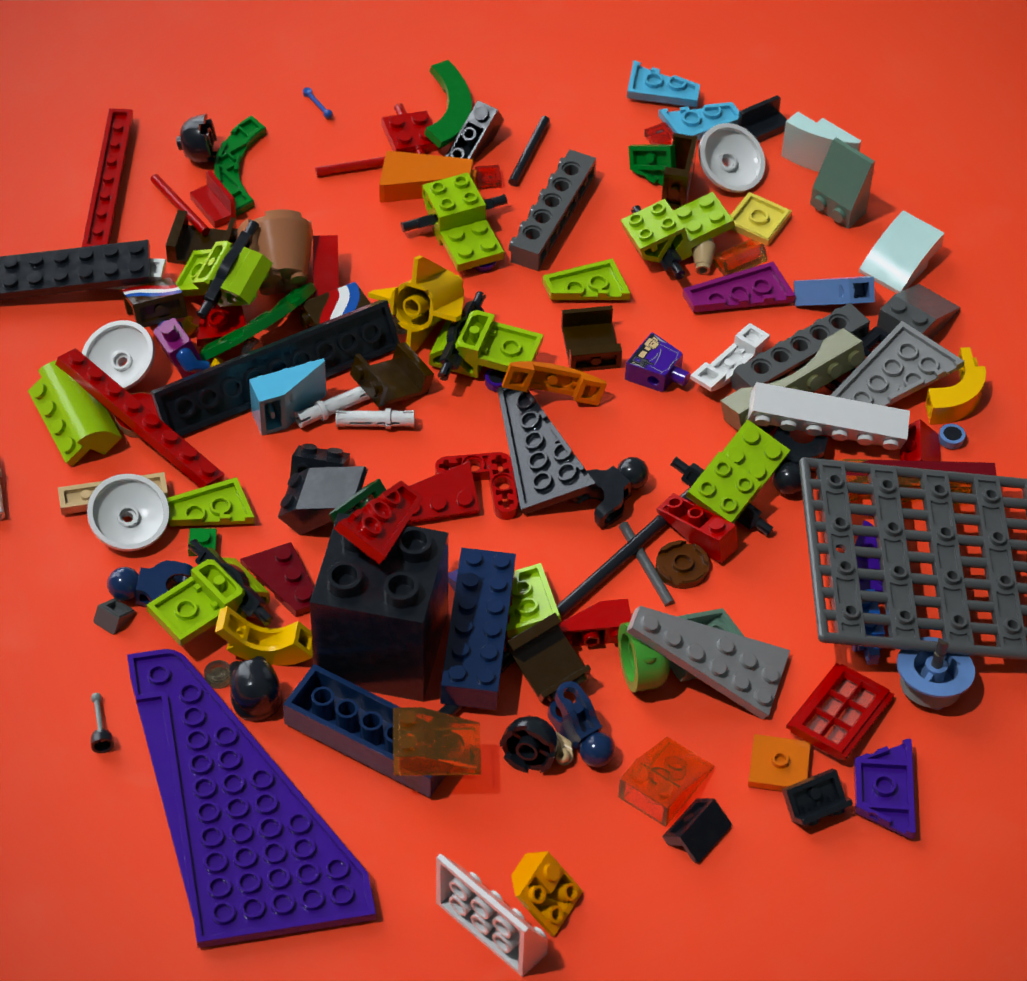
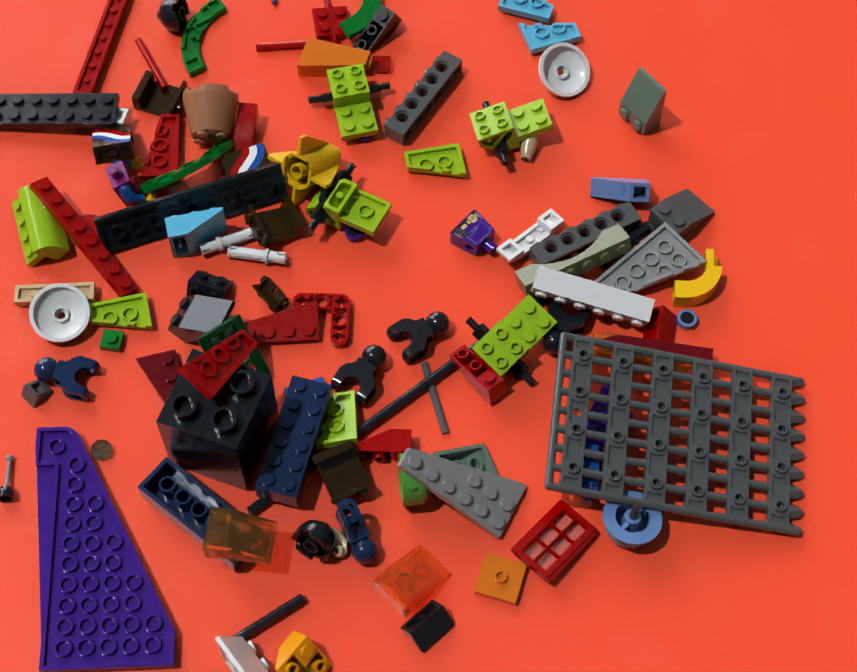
camera: 10 degrees right, 10 degrees up
(121, 343) = (75, 177): white dish -> none
(213, 585) = (109, 386): lime piece -> none
(214, 201) = (176, 65): red panel -> none
(225, 273) = (166, 128): lime piece -> none
(254, 689) = (123, 466): black piece -> none
(277, 645) = (130, 428): yellow arch -> none
(397, 459) = (265, 290): none -> dark brown hinge
(495, 841) = (271, 617): none -> black piece
(528, 151) = (403, 64): bar -> none
(540, 457) = (372, 305): wing -> none
(546, 542) = (361, 373): none -> black piece
(556, 379) = (393, 239): orange slope -> none
(590, 339) = (429, 207): dark brown panel -> none
(651, 160) = (506, 67): green wing -> none
(659, 134) = (516, 44): clear red tile -> none
(679, 179) = (518, 88): dark brown panel -> none
(682, 564) = (461, 402): reddish brown tile -> none
(740, 257) = (556, 152): clear orange slope -> none
(741, 289) = (554, 178): magenta wing -> none
(759, 218) = (576, 120): light yellow tile -> none
(763, 119) = (595, 40): black panel -> none
(809, 141) = (624, 63): slope -> none
(816, 798) = (521, 613): black bracket -> none
(886, 788) = (577, 609): dark purple wing -> none
(902, 252) = (678, 162): light aqua slope -> none

